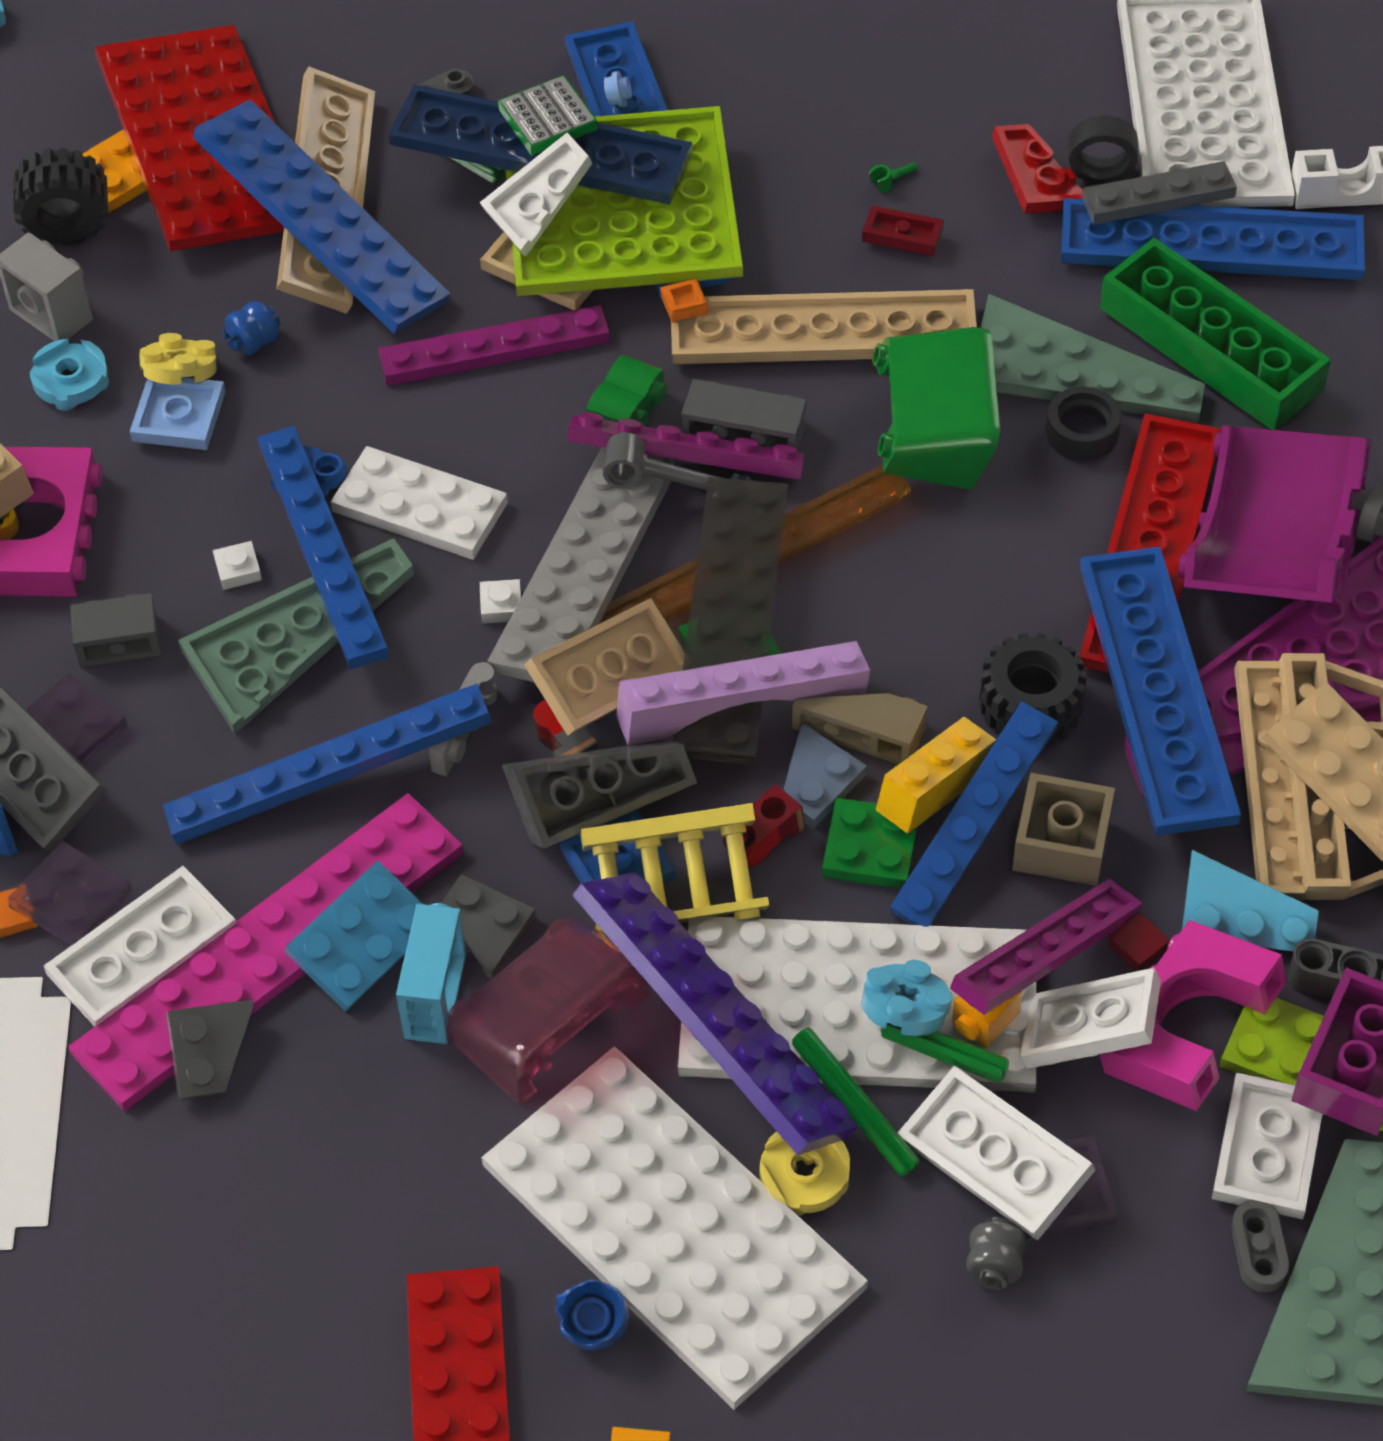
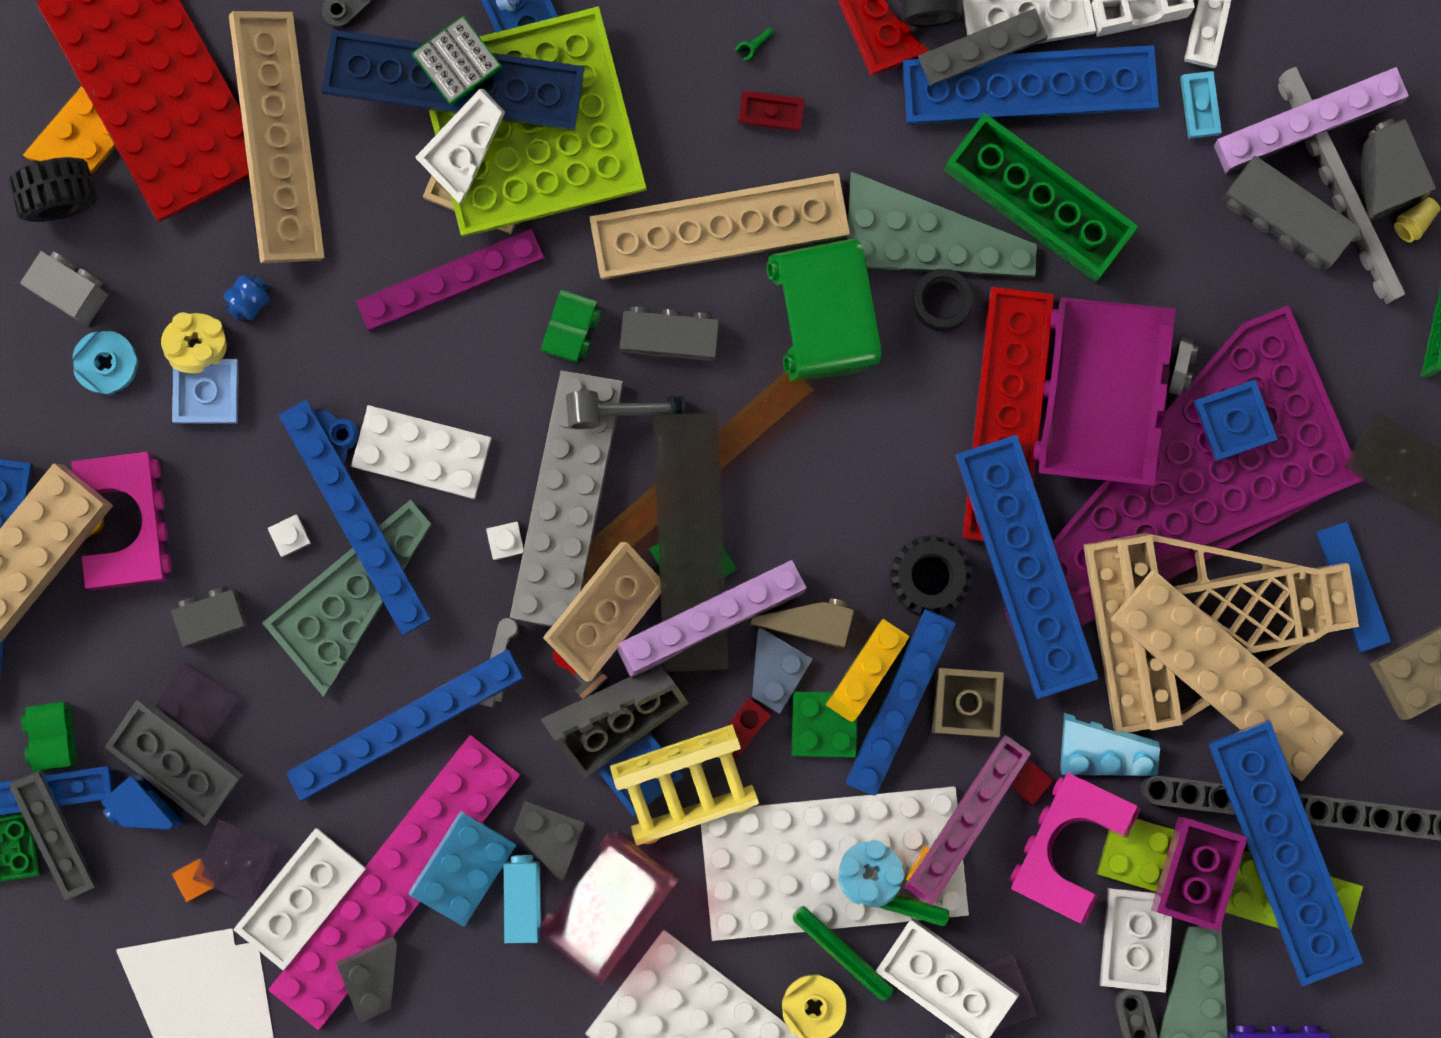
camera: 15 degrees left, 30 degrees up
(321, 216) = (280, 181): blue plate -> none
(684, 300) = (601, 222): orange tile -> none
(699, 448) = (628, 377): magenta plate -> none
(716, 1012) = (734, 911): dark purple plate -> none
(1091, 1018) = (1006, 871): white plate -> none

